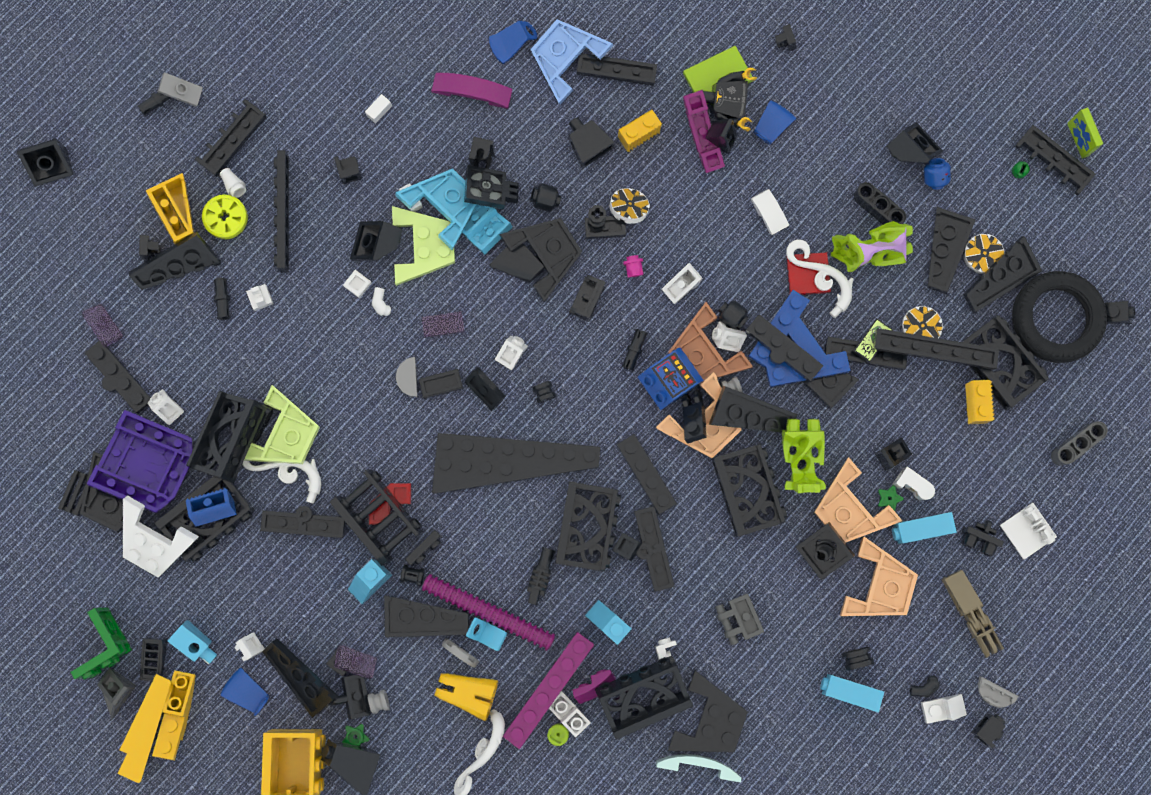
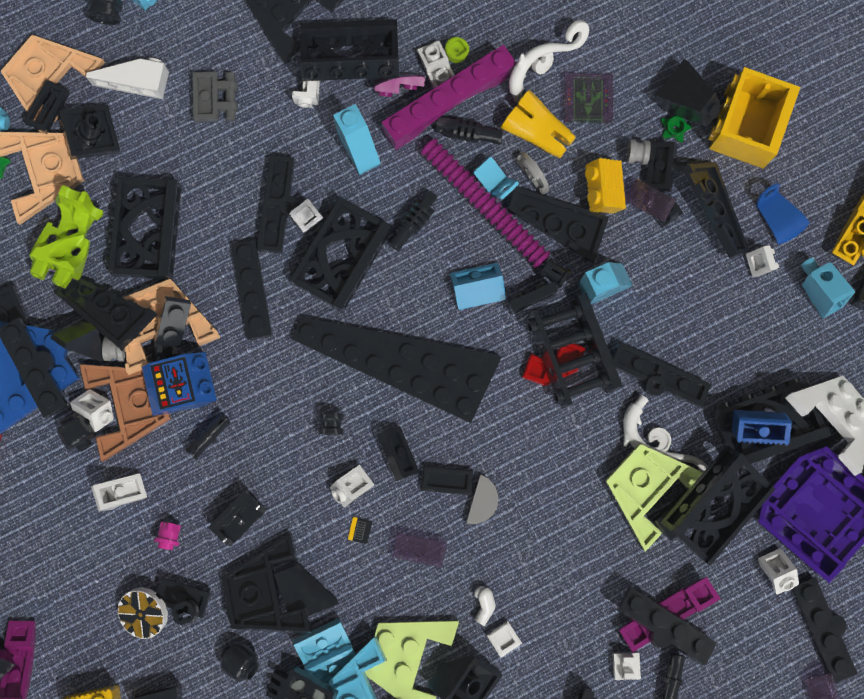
camera: 160 degrees left, 0 degrees up
(238, 333) = (666, 627): none -> black hinge
(240, 346) = (681, 603): none -> magenta slope
(395, 660) = (605, 186): none -> yellow brick
(435, 735) = (588, 98): none -> clear purple tile
(470, 543) = (478, 286): none -> dark azure panel
(493, 323) = (360, 530): none -> black sticker
(523, 668) = (468, 130): none -> black hinge
(758, 383) = (80, 338): none -> black slope
(806, 612) = (134, 77): none -> white slope
(873, 576) = (51, 117): none -> black tile

